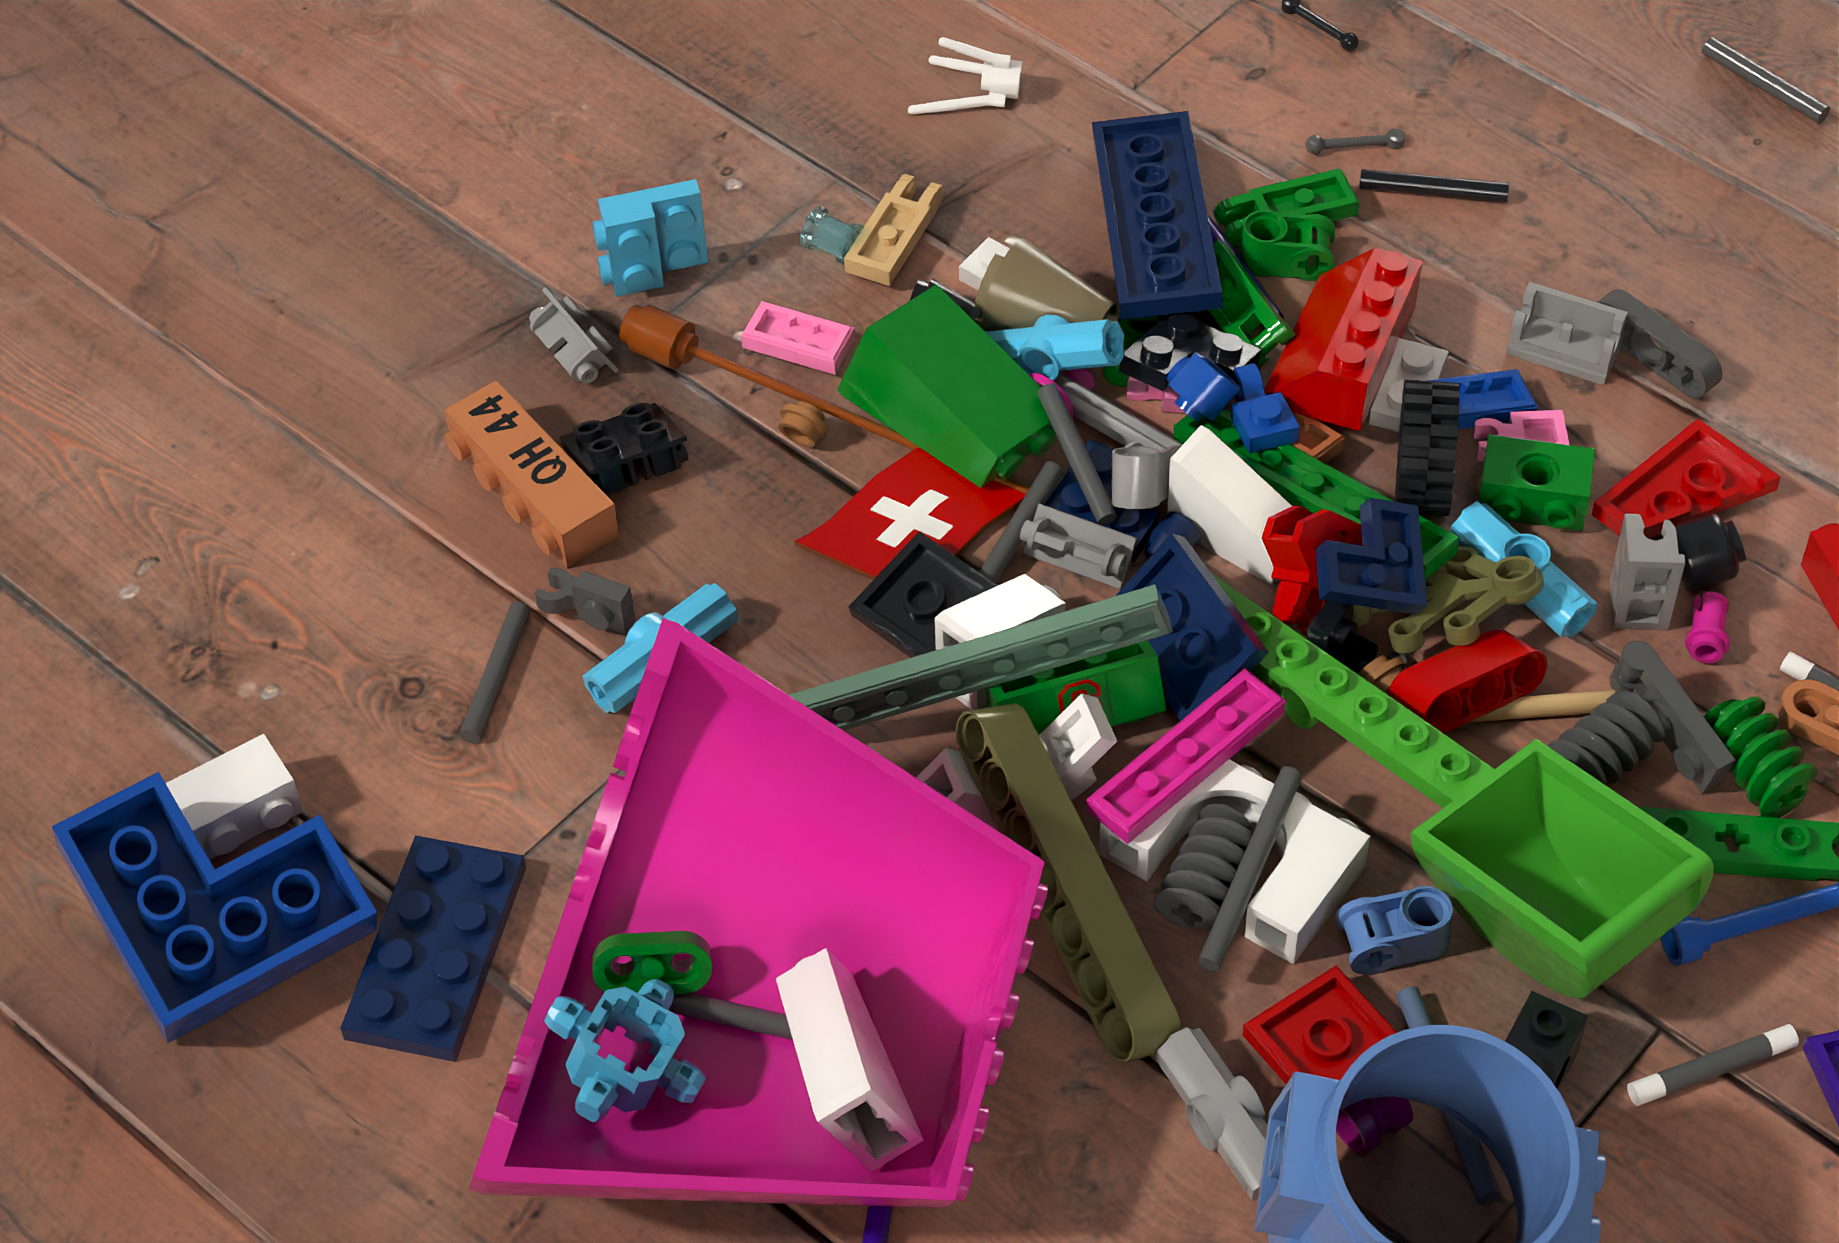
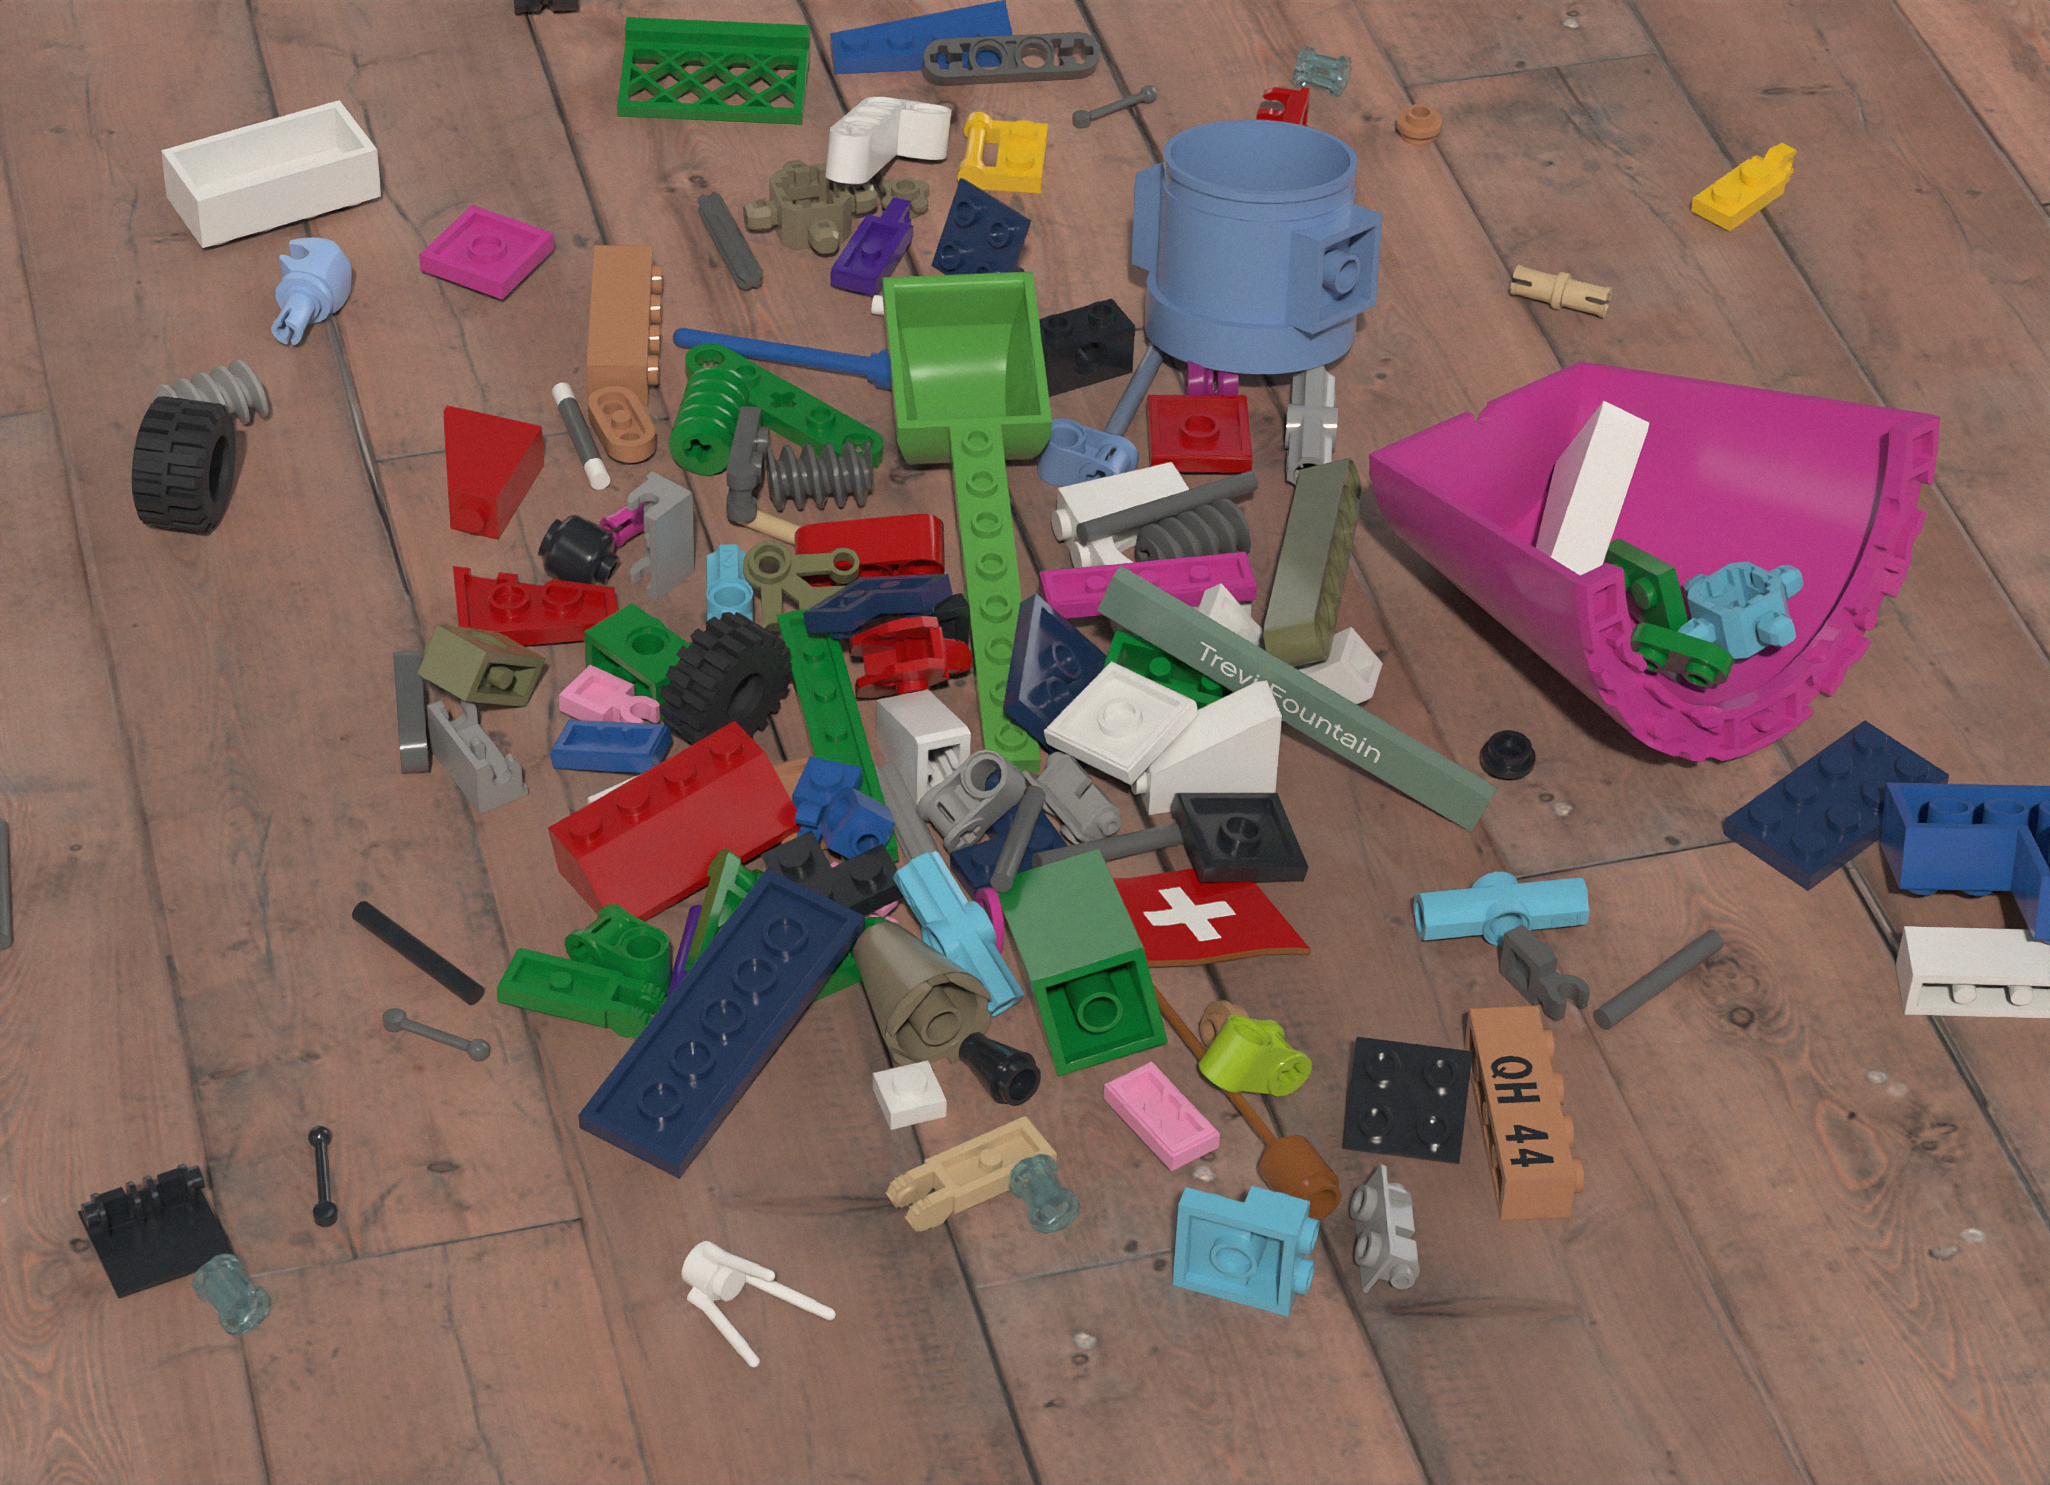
camera: 150 degrees left, 10 degrees down
(733, 1024) = (1650, 586): none -> green wing
(754, 400) = (1254, 1058): none -> lime piece
(1074, 573) = (1121, 722): none -> white tile
(1618, 400) = (480, 666): none -> olive brick
(1778, 1137) = (980, 234): none -> dark blue hinge

